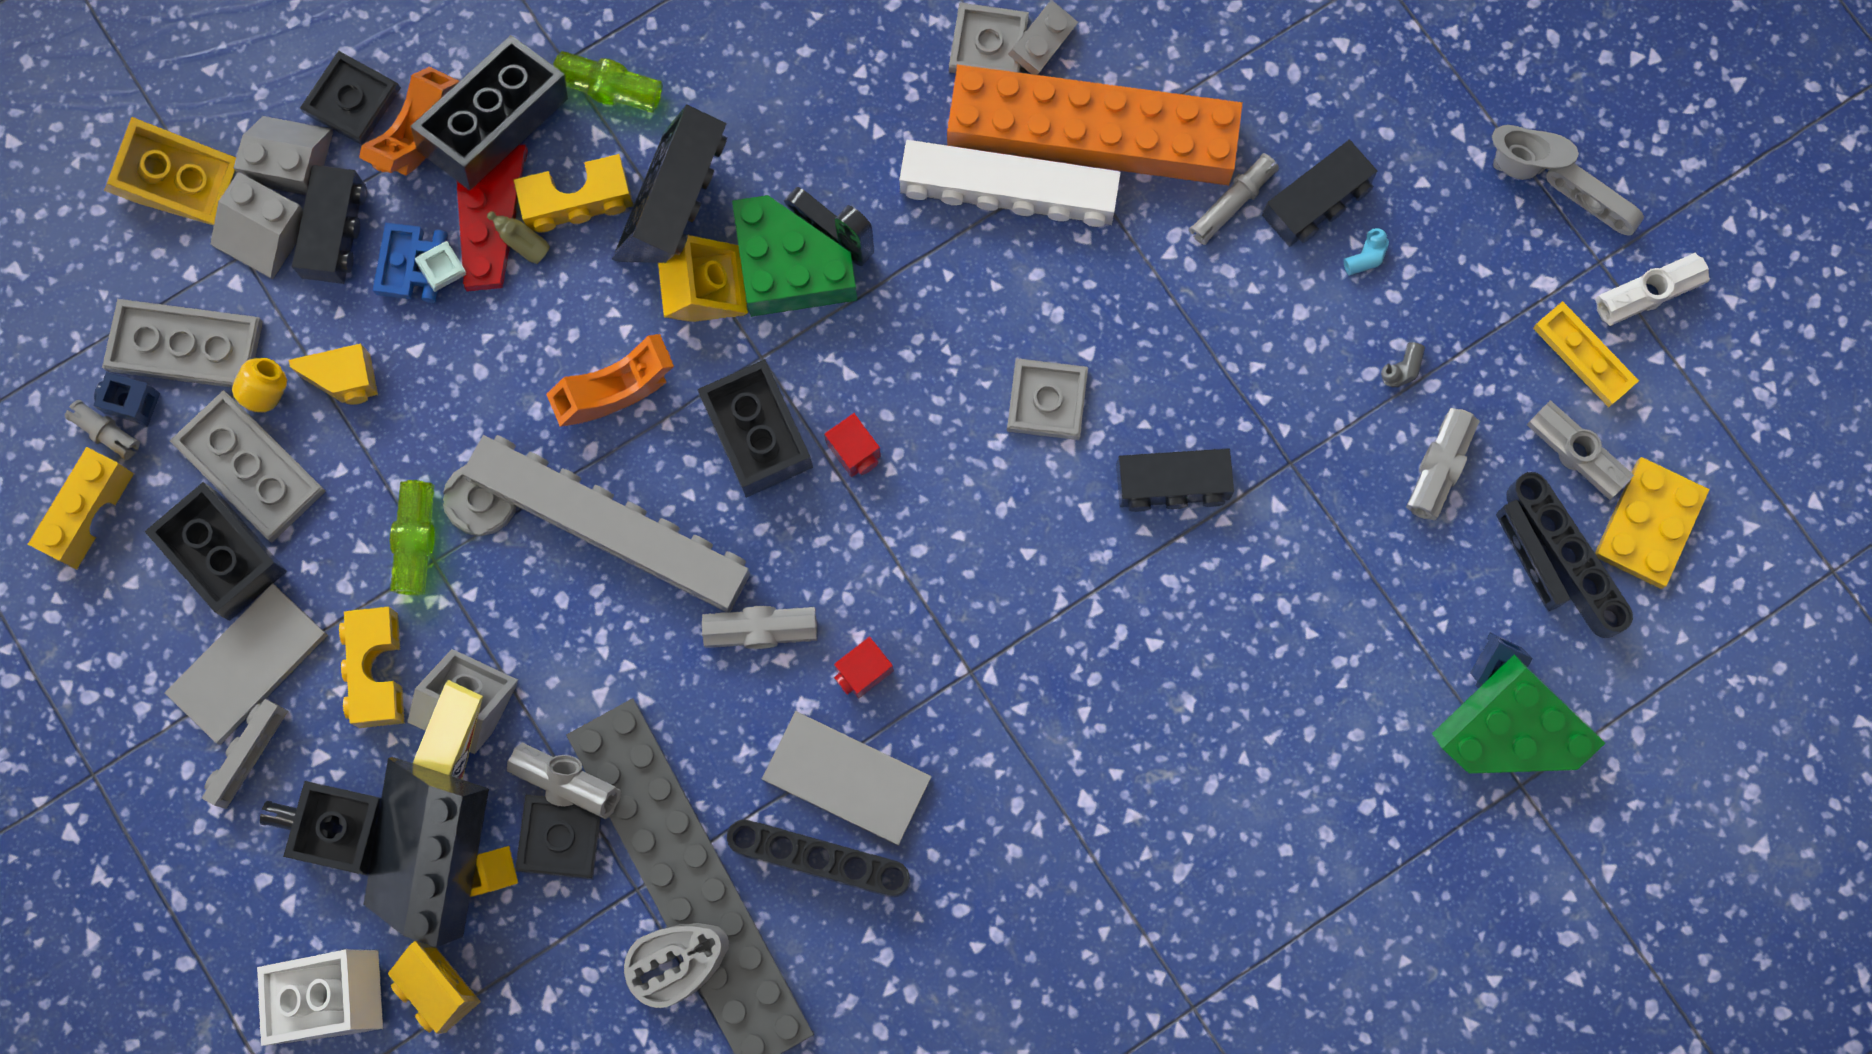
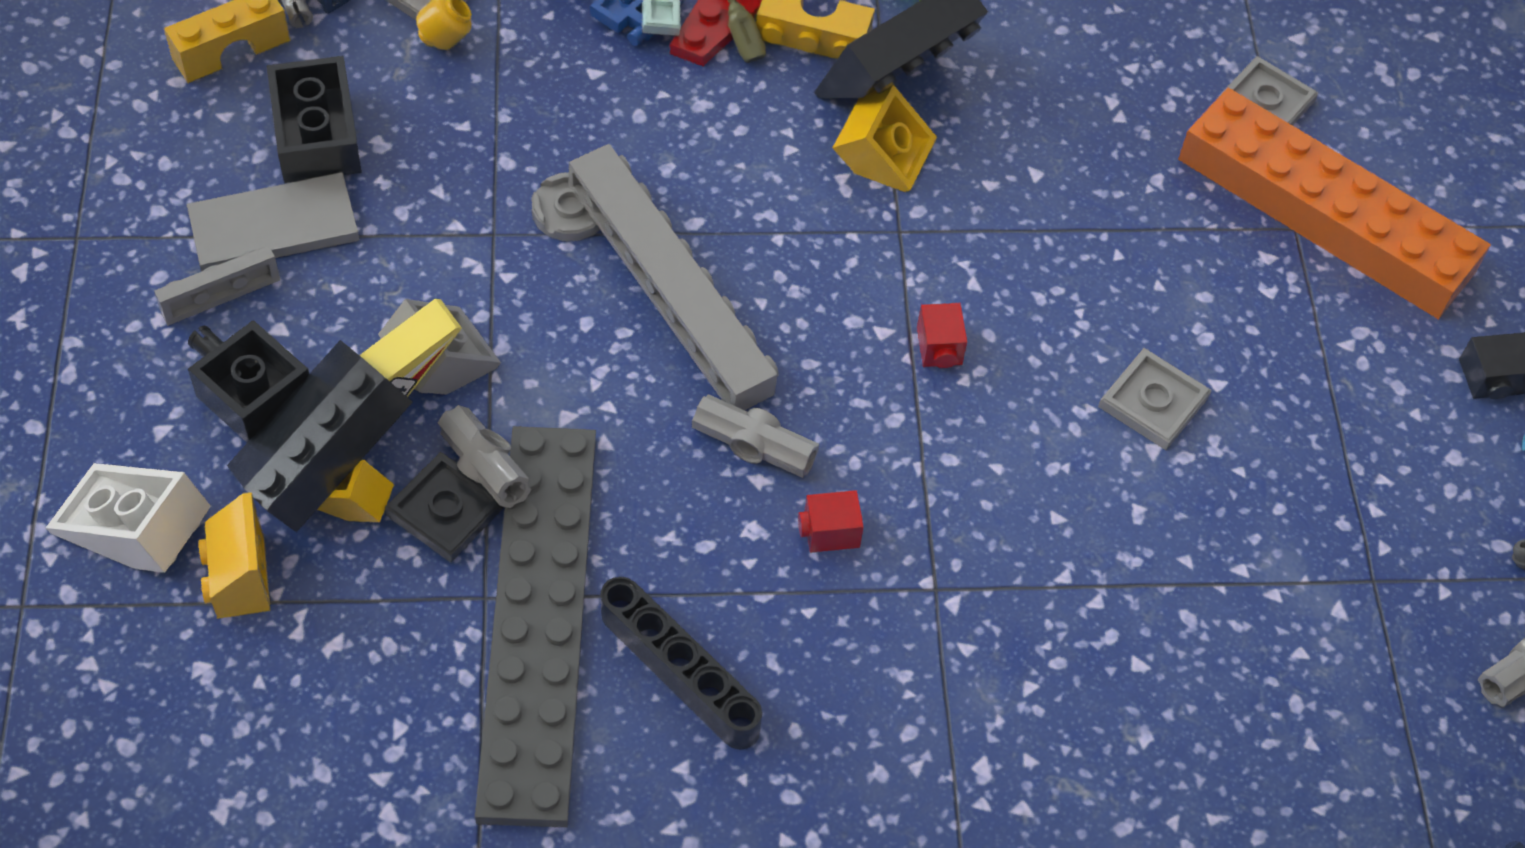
camera: 25 degrees right, 20 degrees down
(247, 466) = (388, 82): light grey tile -> none
(340, 372) = (517, 49): yellow slope -> none
(366, 636) = (391, 253): yellow arch -> none
(412, 538) = (488, 201): clear neon green piece -> none
(613, 388) = (748, 180): orange arch -> none
(663, 947) = (474, 648): light grey piece -> none
(755, 428) = (859, 272): black brick -> none
(788, 260) = (975, 164): green brick -> none
(846, 778) = (754, 612): light grey tile -> none
(847, 229) = (1041, 160): black beam -> none
(1009, 183) = (1223, 207): white brick -> none
(1043, 38) = (1323, 114): light grey plate -> none
(1175, 479) = (1246, 524): black brick -> none
(1244, 188) = (1453, 324): light grey pin -> none

